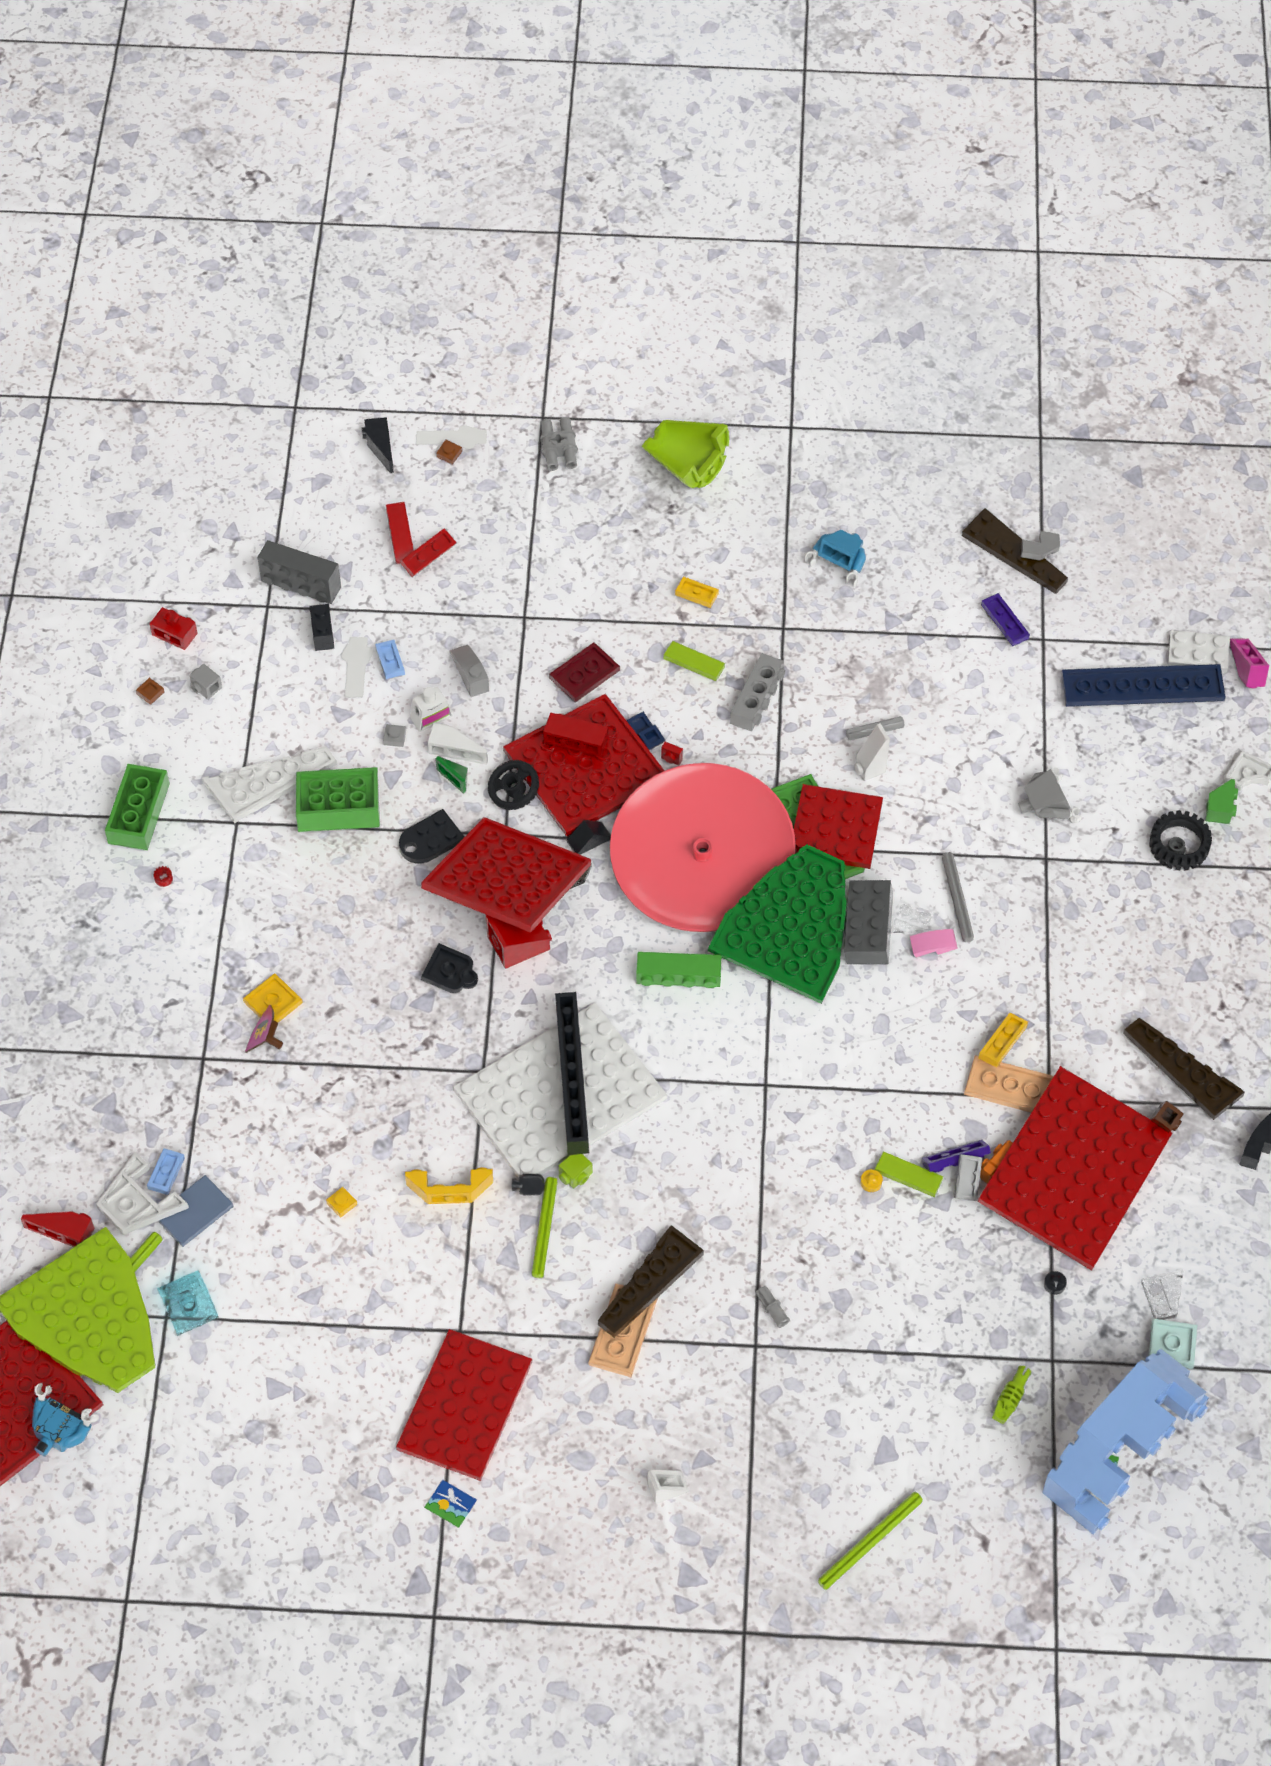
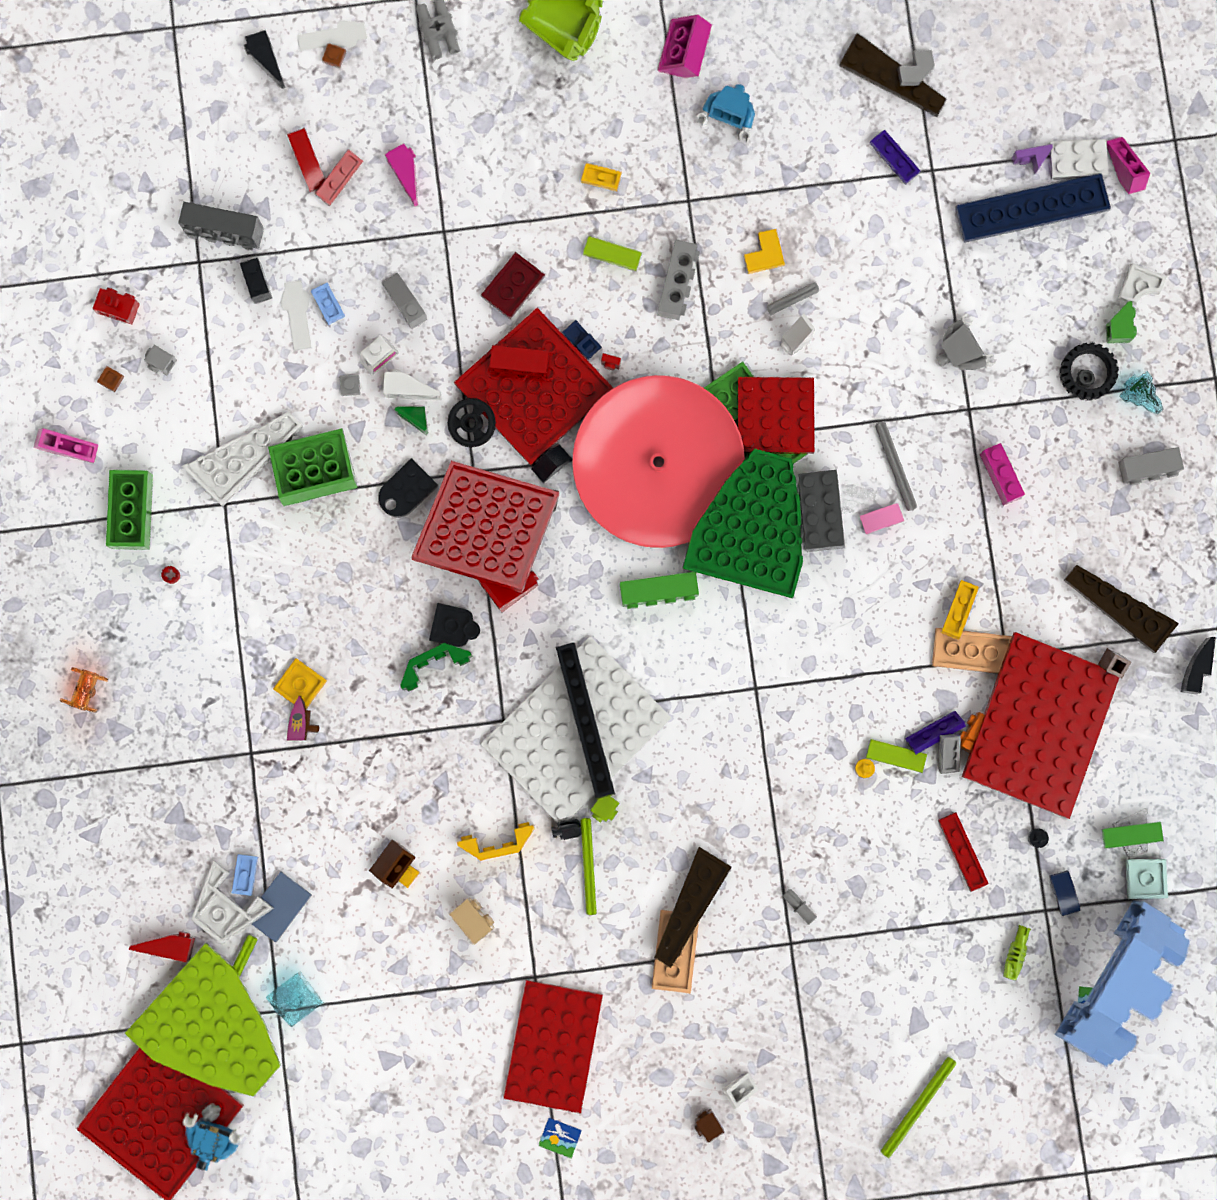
camera: 10 degrees left, 25 degrees up
(44, 963) = (84, 690): none -> clear orange hose
(66, 1396) = (211, 1112): none -> light grey plate
(86, 741) = (65, 445): none -> dark pink slope
(329, 1183) = (392, 863): none -> reddish brown brick
(404, 1252) = (472, 920): none -> tan brick
(450, 997) = (410, 676): none -> green slope
(496, 552) = (403, 165): none -> dark pink slope
(623, 1514) = (708, 1125): none -> reddish brown brick
(806, 493) = (685, 46): none -> dark pink slope
(856, 688) = (769, 256): none -> yellow tile
(967, 1283) = (963, 852): none -> red tile
(1070, 919) = (1002, 474): none -> dark pink brick
(1076, 1342) = (1065, 893): none -> dark blue slope
(1153, 638) = (1035, 154): none -> medium lavender slope
(1161, 1291) = (1132, 835): none -> bright green tile
(1235, 868) = (1142, 393): none -> clear light blue rock
(1235, 937) = (1151, 466): none -> light grey brick

